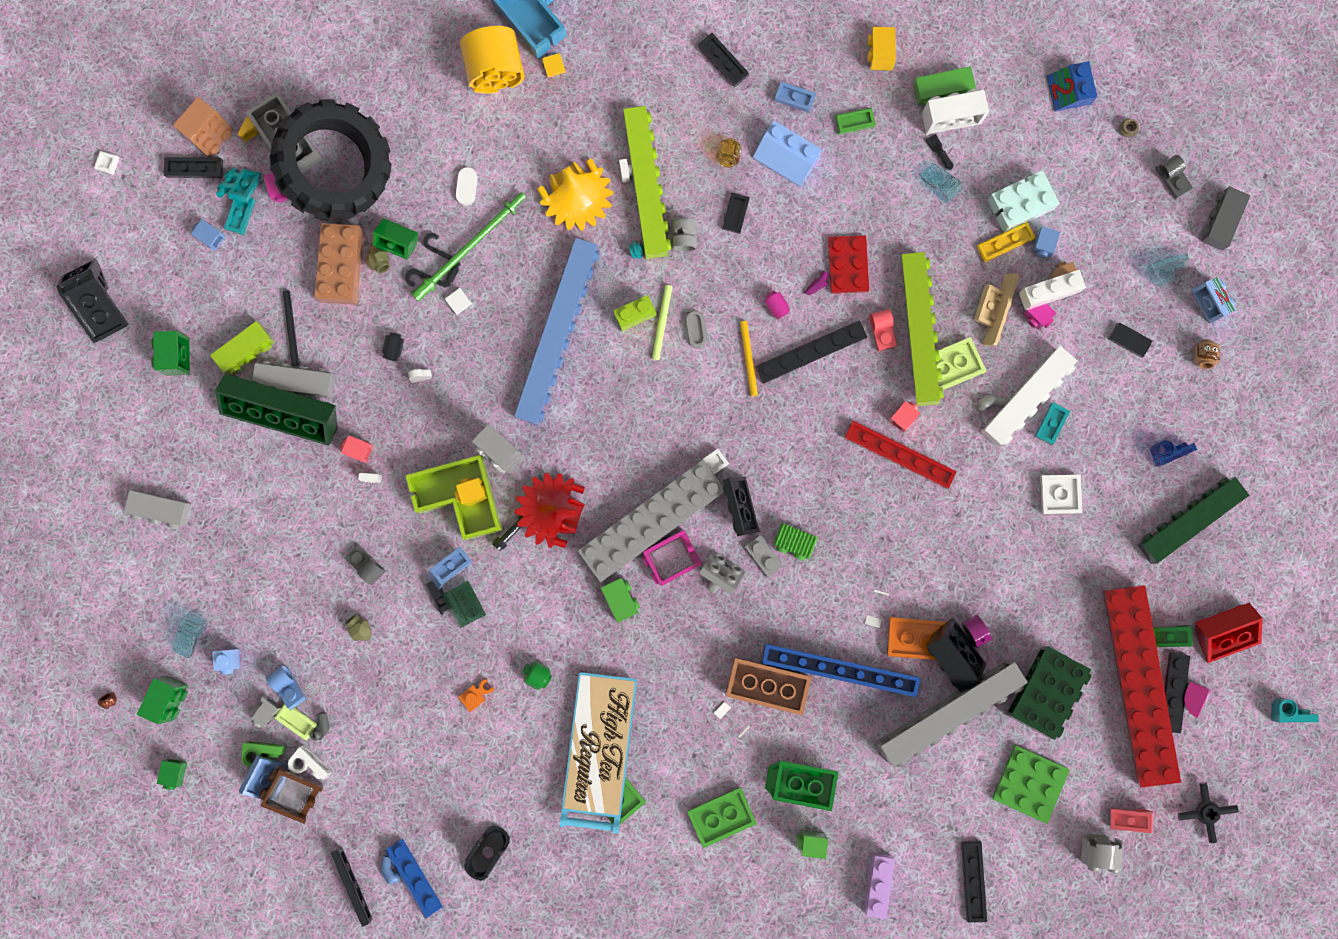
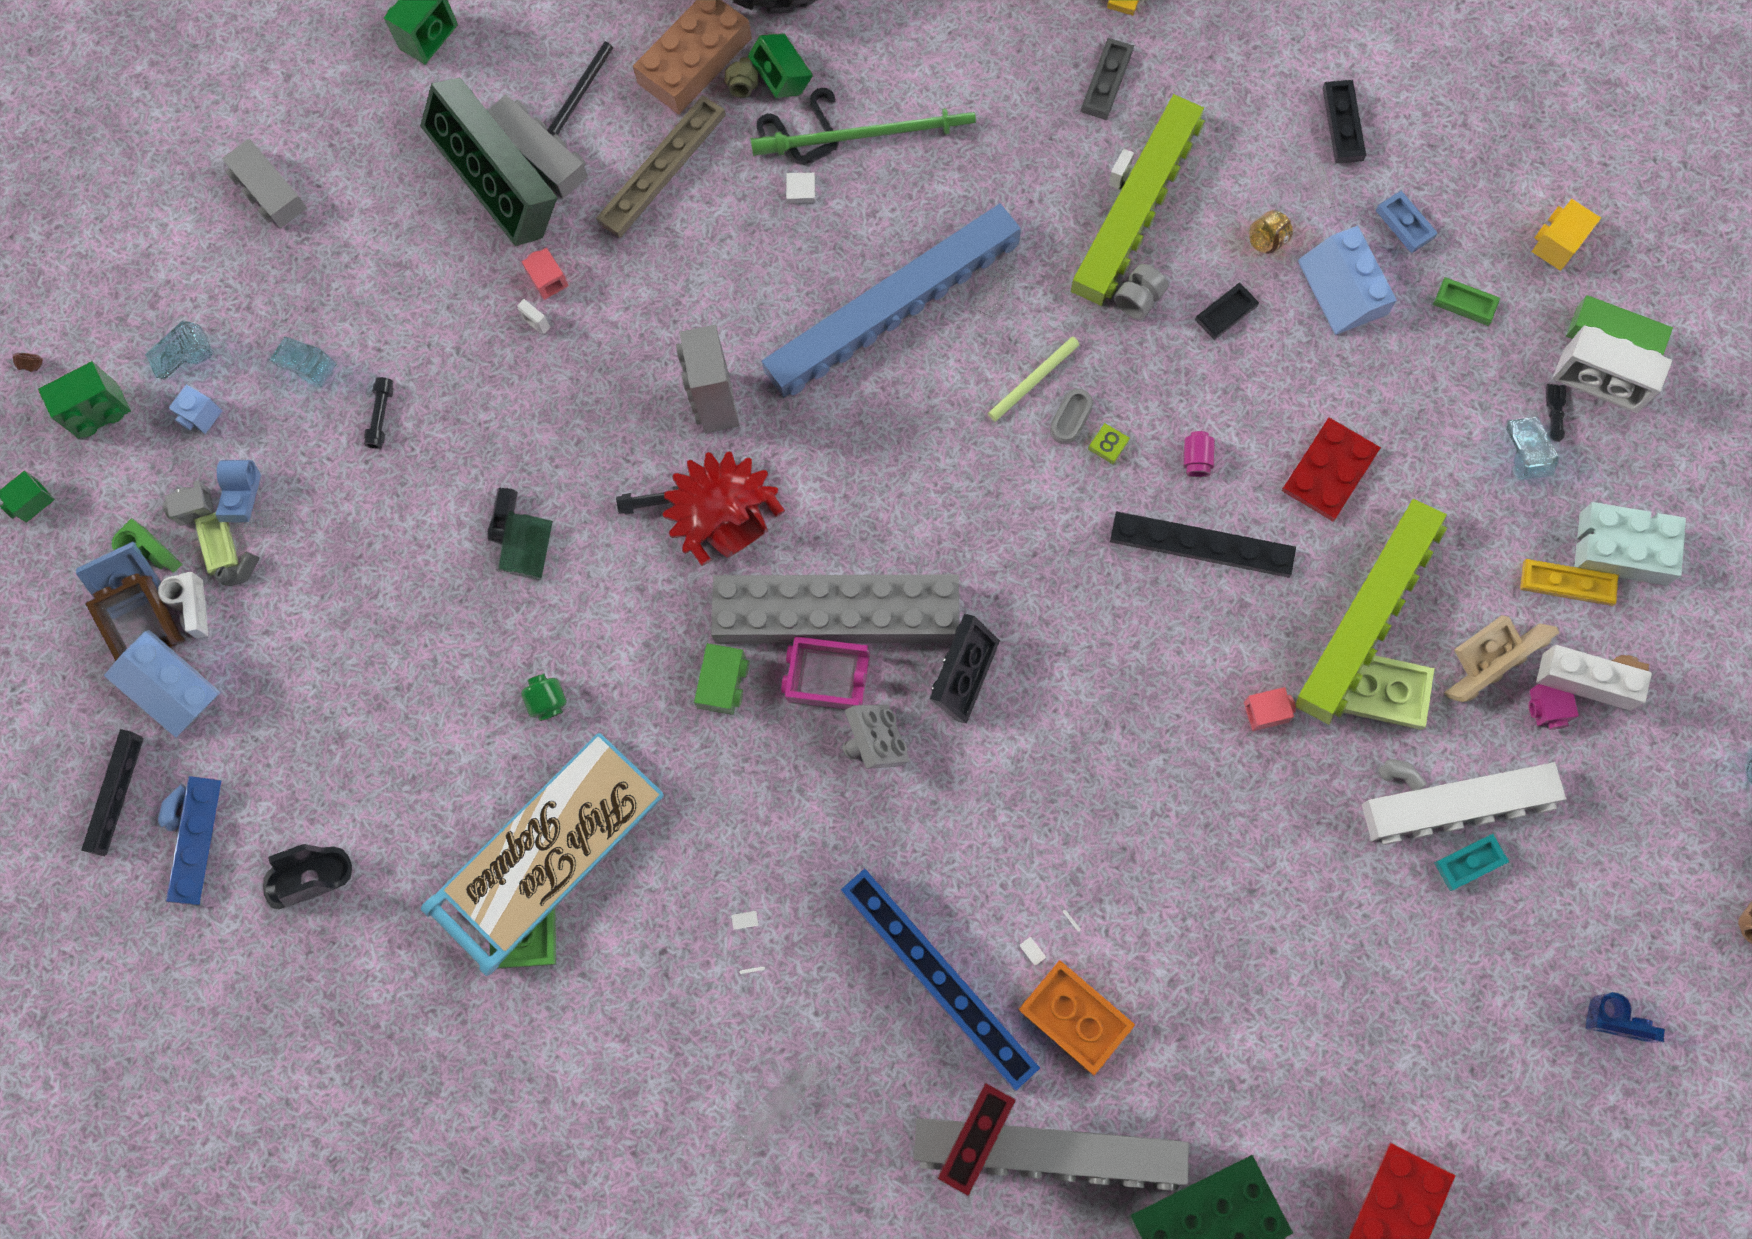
camera: 40 degrees right, 10 degrees down
(243, 349) = (507, 72): lime brick -> none
(262, 591) = (304, 360): none -> clear light blue plate
(318, 575) = (375, 436): none -> black bar
(333, 814) = (161, 683): none -> light blue slope
(358, 628) = (377, 484): olive rock -> none
(365, 565) = (446, 416): dark grey plate -> none
(372, 342) = (661, 166): none -> dark tan plate
(392, 346) = (680, 186): black brick -> none
(419, 375) = (684, 238): white tile -> none
(437, 490) = (634, 404): lime piece -> none
(449, 567) = (541, 483): medium blue panel -> none
(466, 186) = (913, 65): white tile -> none
(471, 491) = (638, 411): yellow brick -> none
(474, 697) = (448, 667): orange plate -> none
(577, 195) = (1040, 160): yellow piece -> none
(578, 120) = (1107, 78): none -> dark grey tile
(634, 313) = (1006, 341): lime brick -> none
(636, 250) = (1066, 270): teal plate -> none
(716, 461) = (974, 594): white plate -> none
(721, 817) = (636, 1060): bright green plate -> none
(726, 330) = (1108, 443): none -> lime tile
(748, 358) = (1113, 497): yellow bar -> none
(764, 556) = (948, 759): light grey plate -> none
(768, 686) = (827, 928): nougat brick -> none
(794, 541) = (1002, 767): bright green brick -> none
(802, 784) = (774, 1096): green slope -> none
(812, 844) = (725, 1187): bright green brick -> none
(817, 284) = (1271, 465): magenta bar -> none
(882, 329) = (1319, 579): coral plate -> none
(900, 454) = (1228, 756): red plate -> none
(918, 736) = (976, 1139): none -> dark red brick
(956, 655) = (1113, 1078): black slope -> none
(976, 631) = (1166, 1066): magenta piece -> none
(1045, 242) = (1626, 617): medium blue brick -> none
(1061, 494) = (1418, 966): white plate -> none
(1130, 340) = (1662, 828): black tile -> none
(1192, 520) = (1591, 1139): dark green brick -> none

